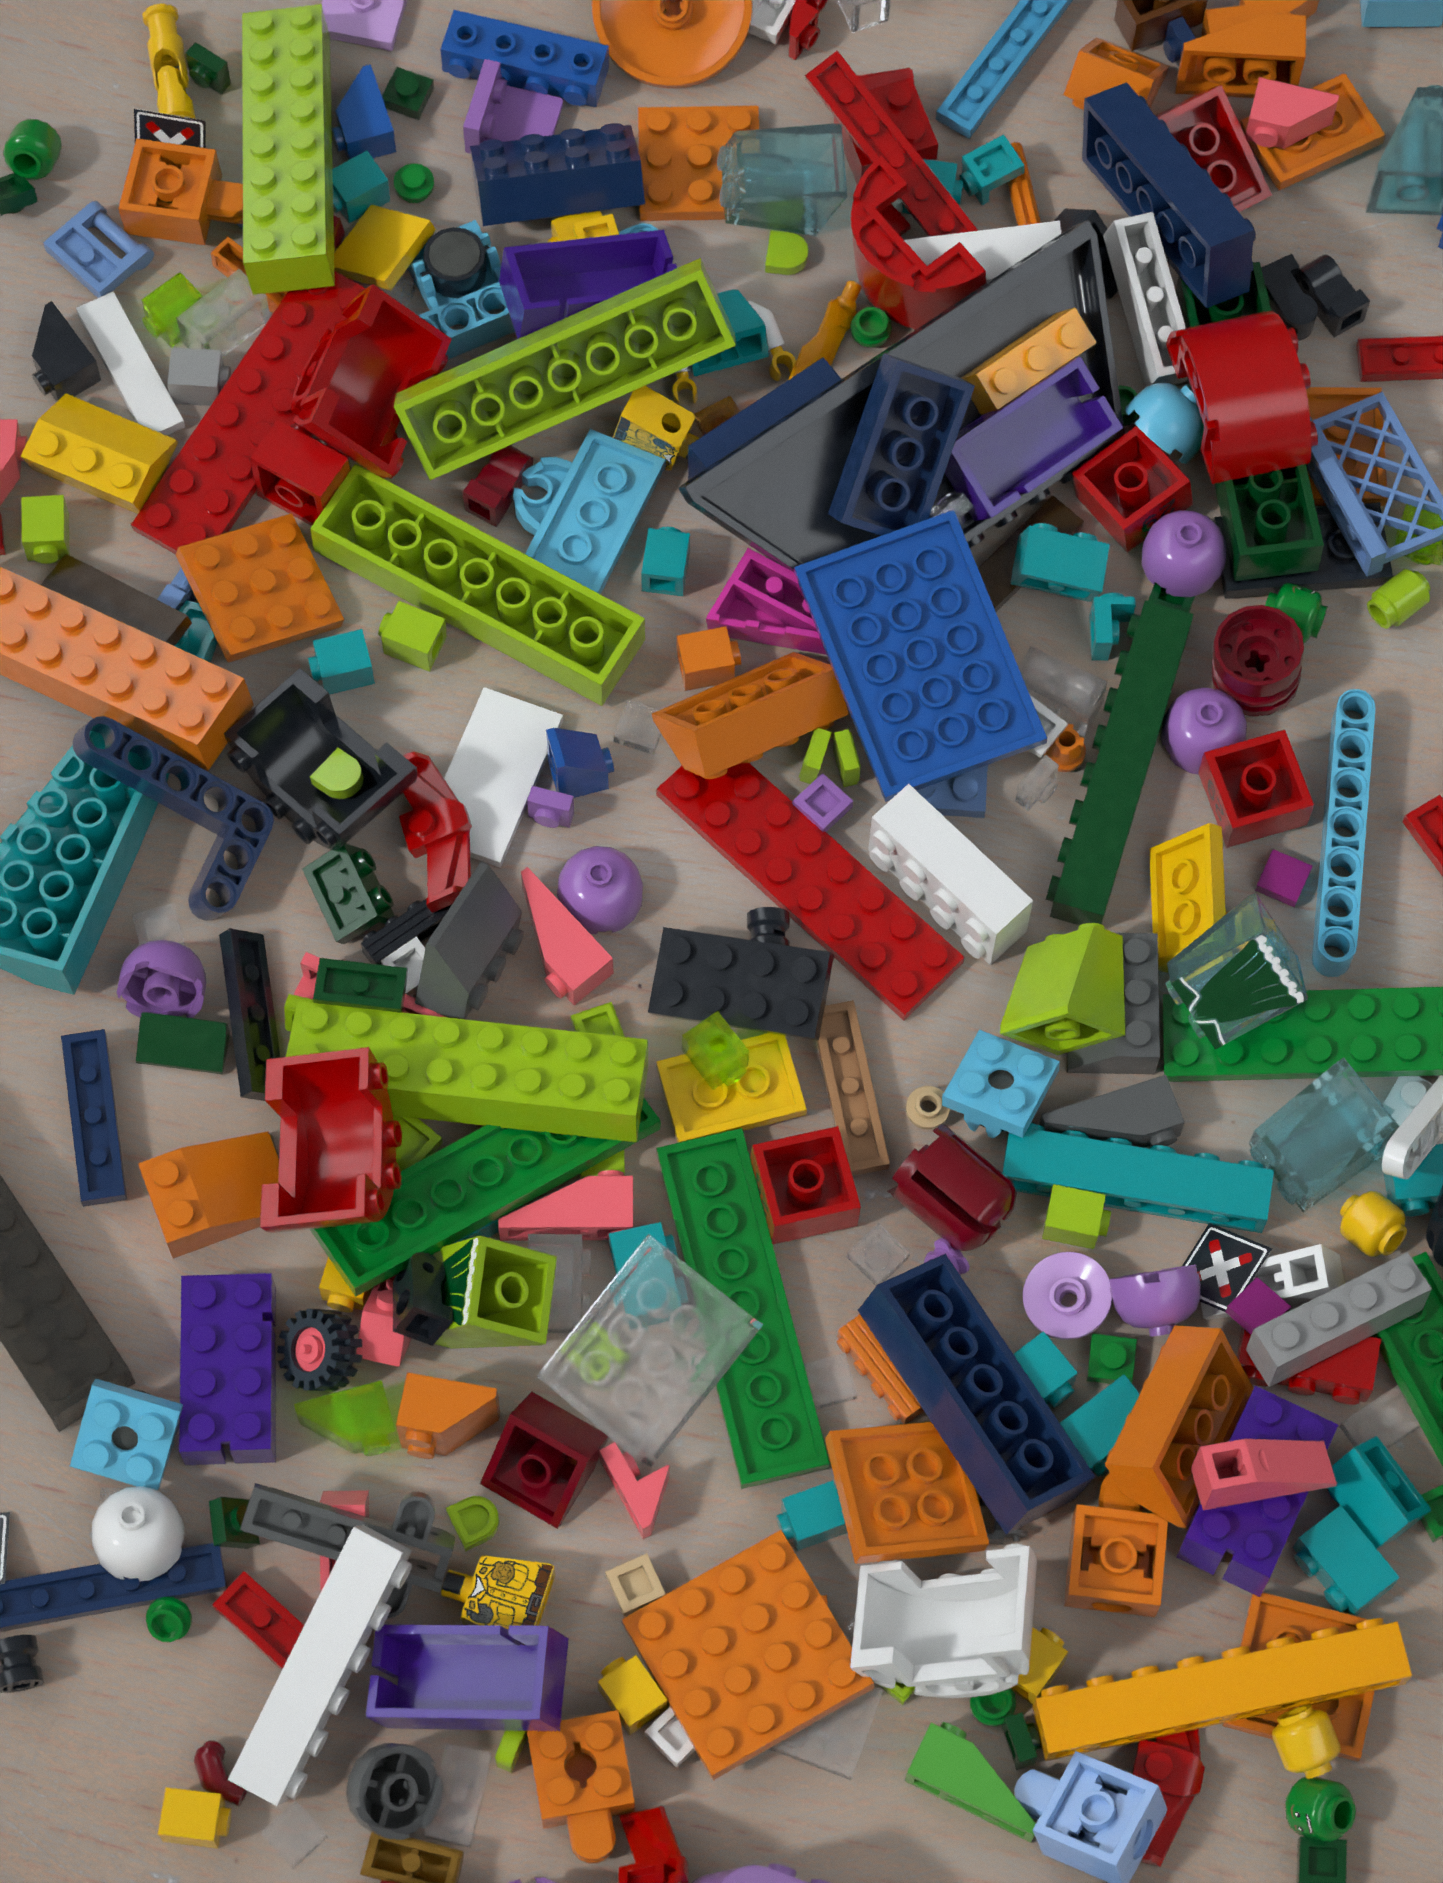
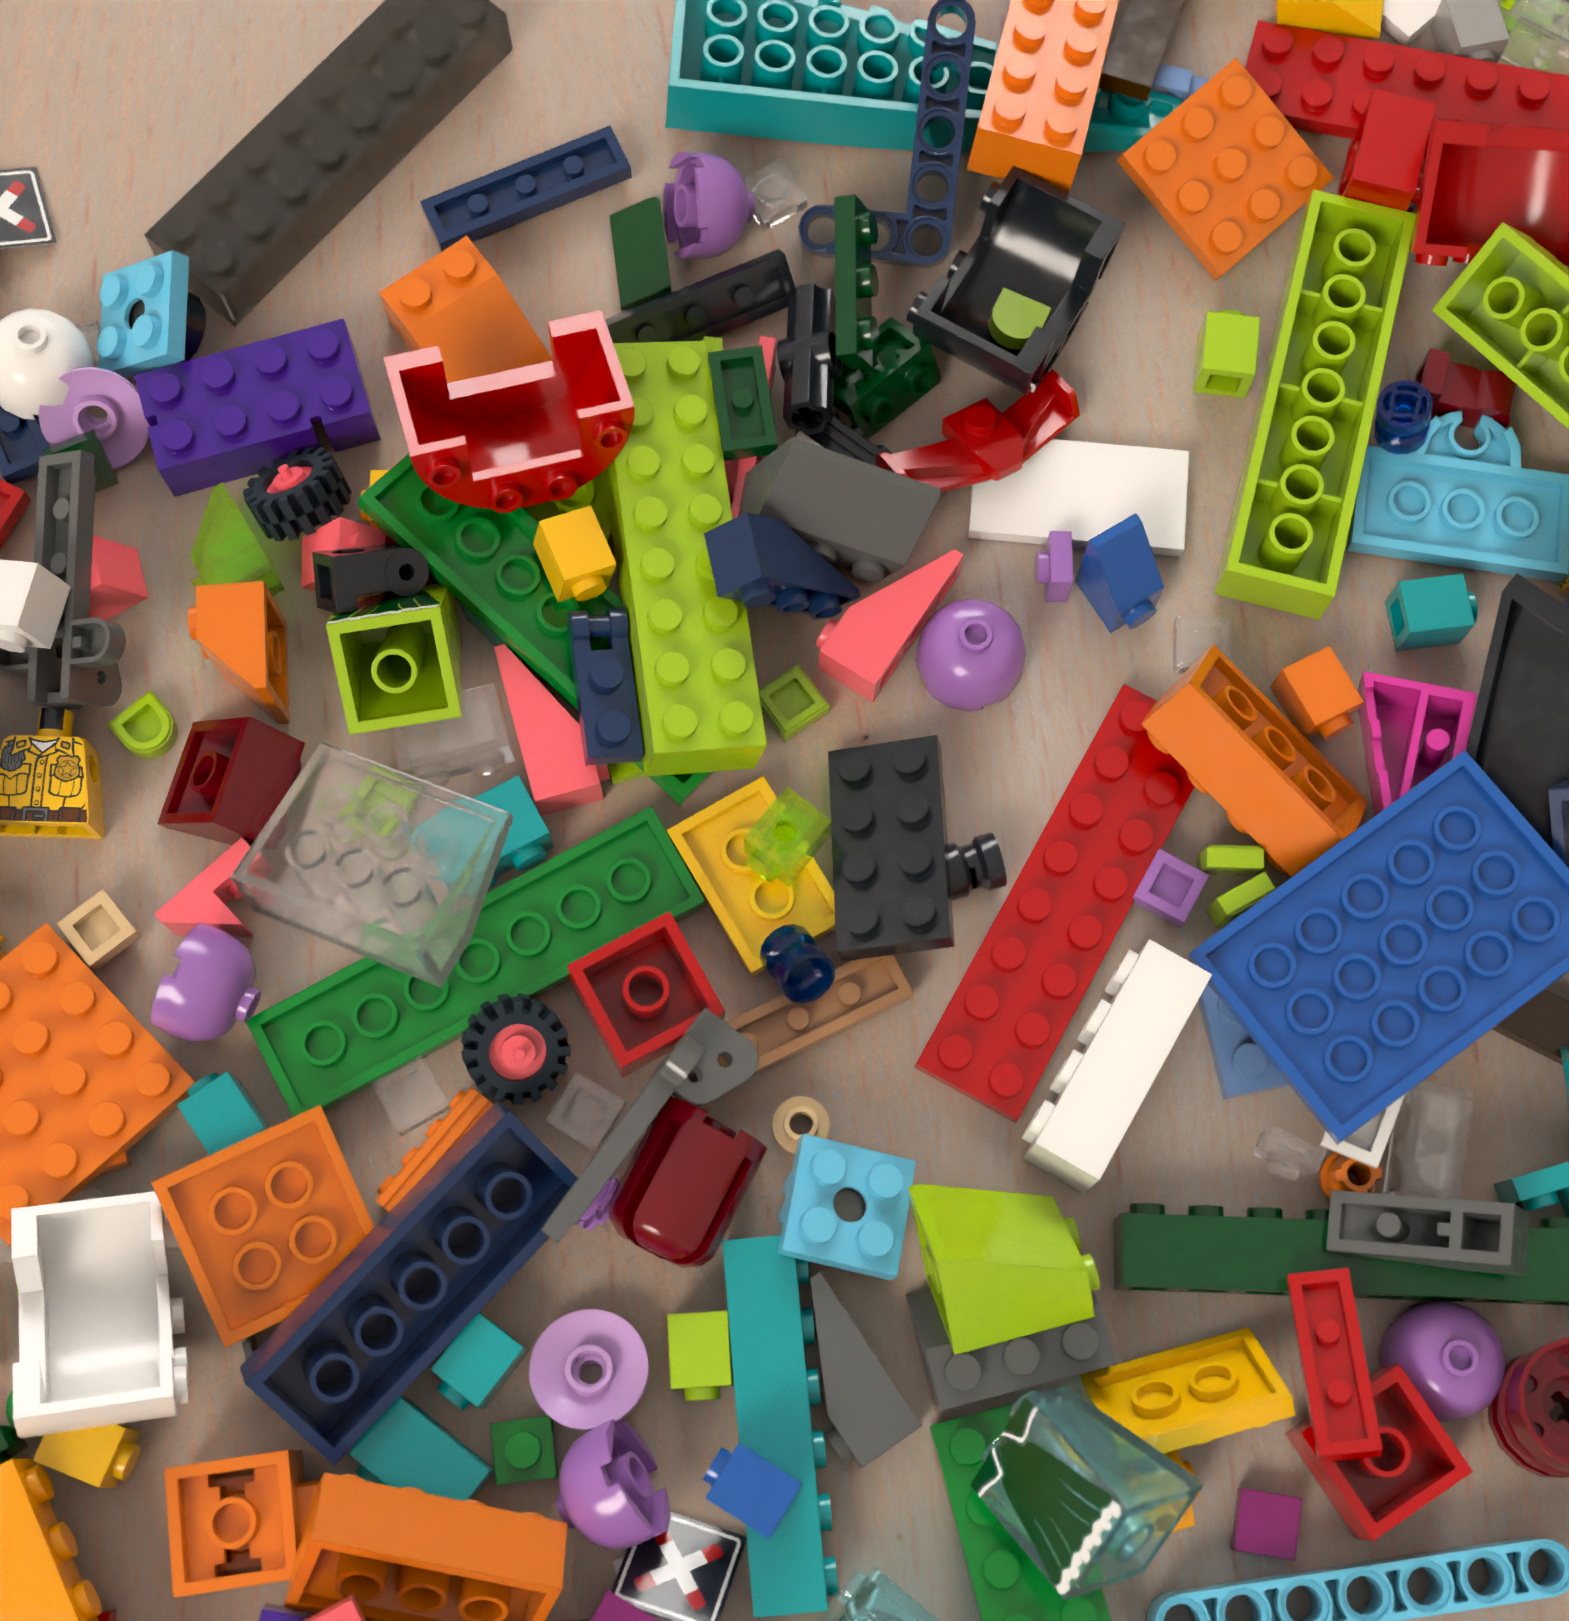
camera: 75 degrees right, 5 degrees up
(189, 1489) = (120, 433): none -> lavender dish
(282, 876) = (855, 282): none -> dark green plate
(325, 934) = (809, 359): none -> black piece
(341, 662) = (1164, 286): teal brick -> none
(451, 1141) = (575, 554): none -> yellow brick
(509, 998) = (772, 566): none -> dark blue slope
(518, 535) = (1403, 417): none -> clear blue wheel
(559, 1149) = (605, 688): none -> dark blue plate
(711, 1500) = (208, 986): none -> medium lavender cylinder
(816, 1068) = (797, 963): none -> clear blue wheel
(819, 1289) = (515, 1048): none -> black wheel
(877, 1147) = (695, 1053): none -> dark grey piece
(1120, 705) = (1430, 1231): none -> dark grey slope
(1183, 1191) = (750, 1488): none -> blue brick
(1194, 791) = (1334, 1365): none -> red plate

